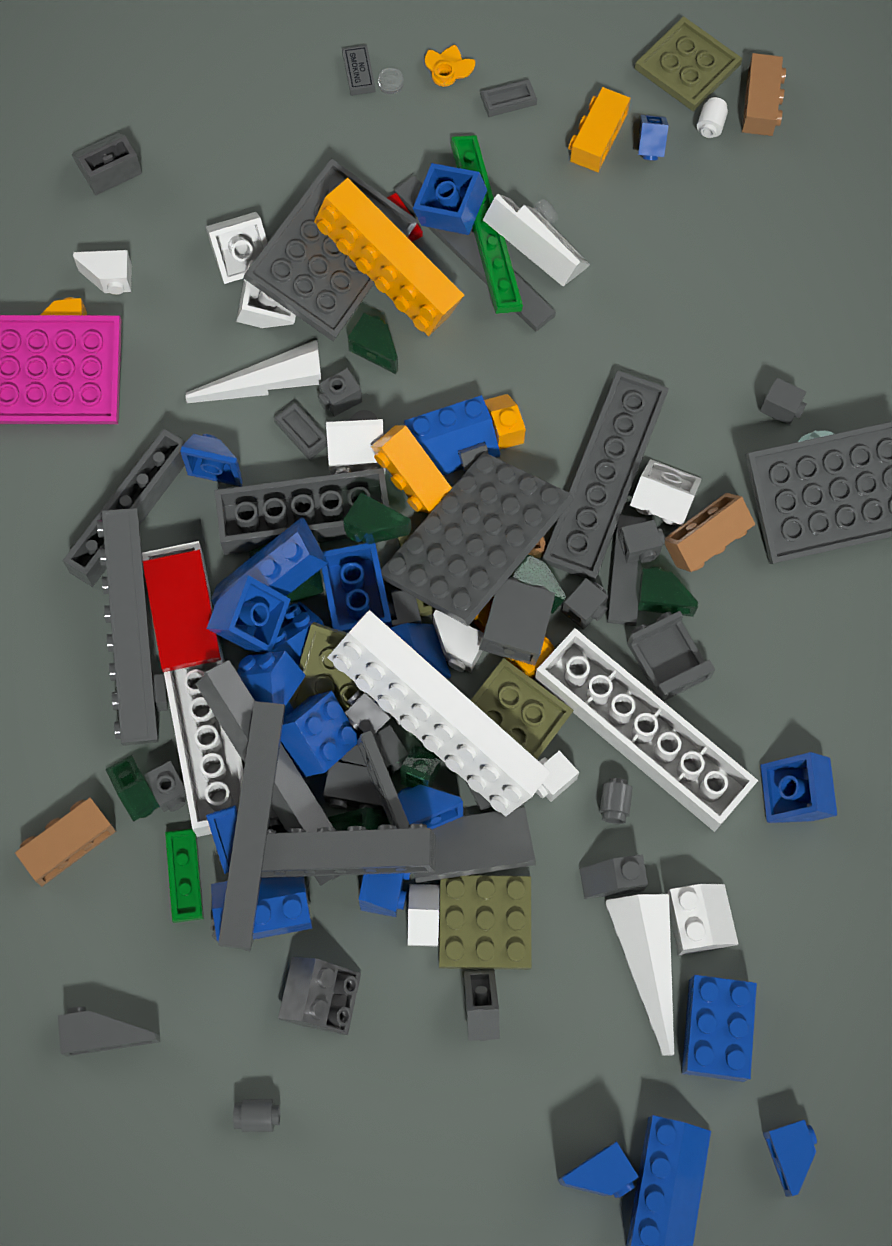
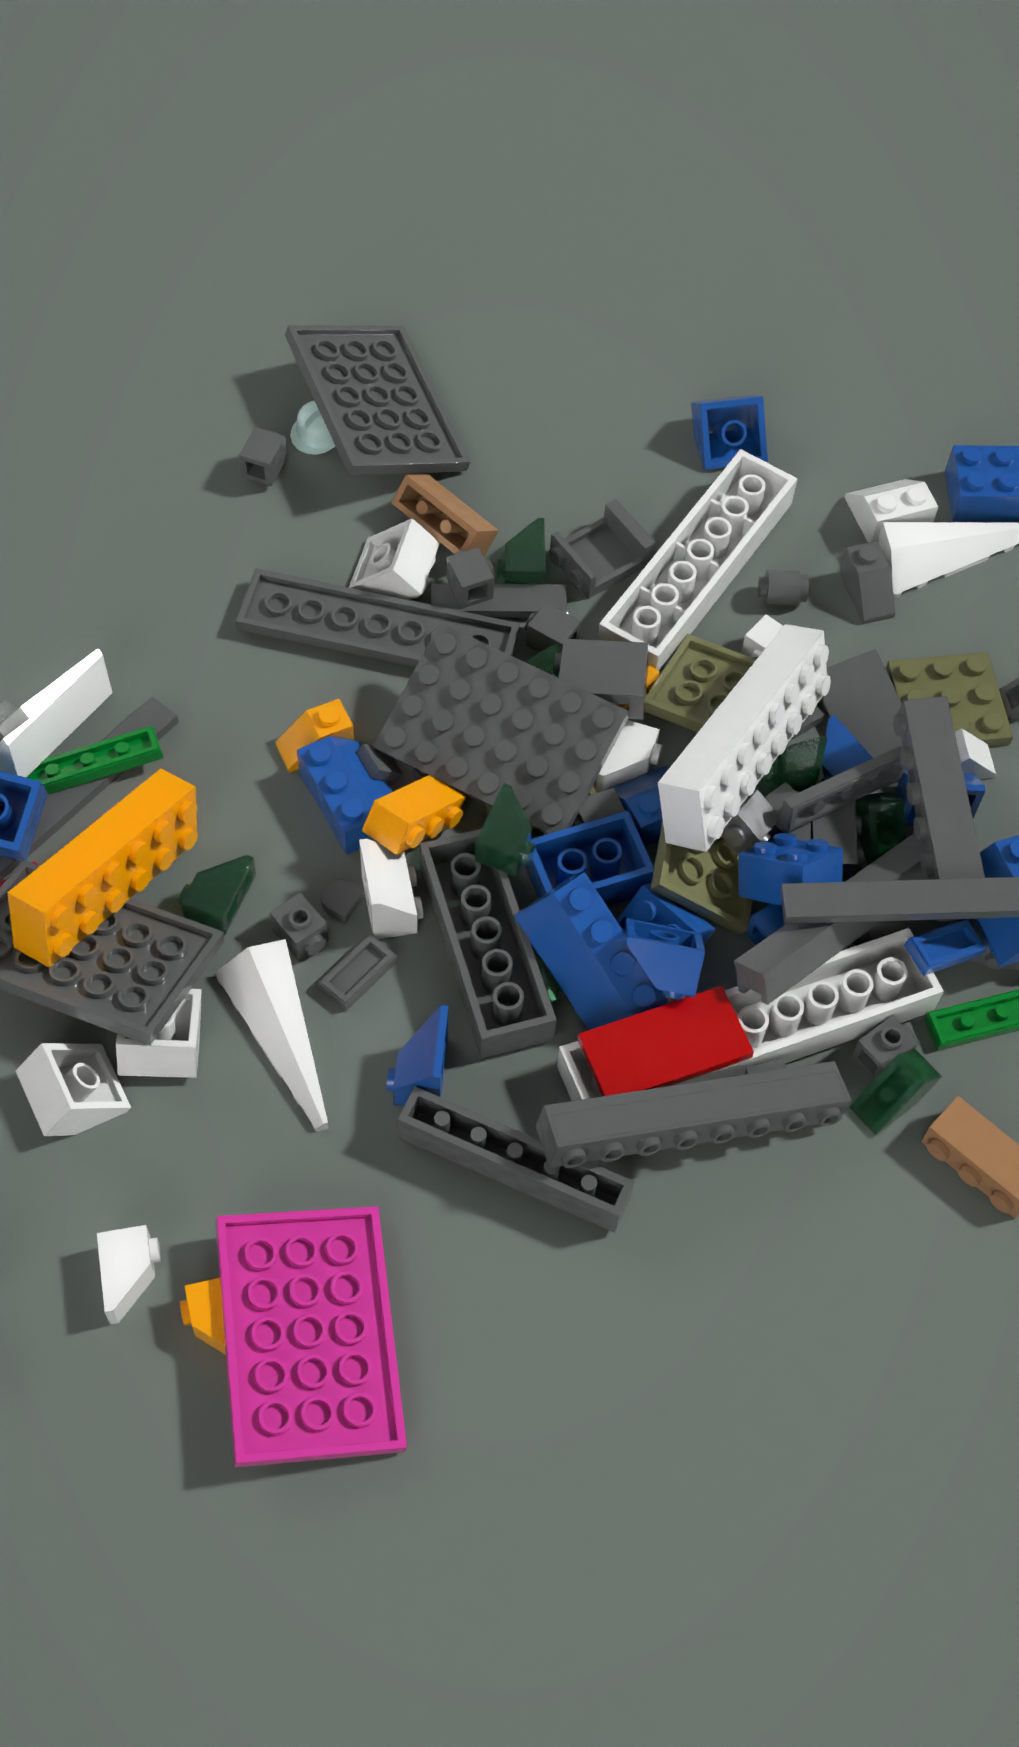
camera: 100 degrees left, 10 degrees down
(270, 676) = (731, 929): blue slope -> none

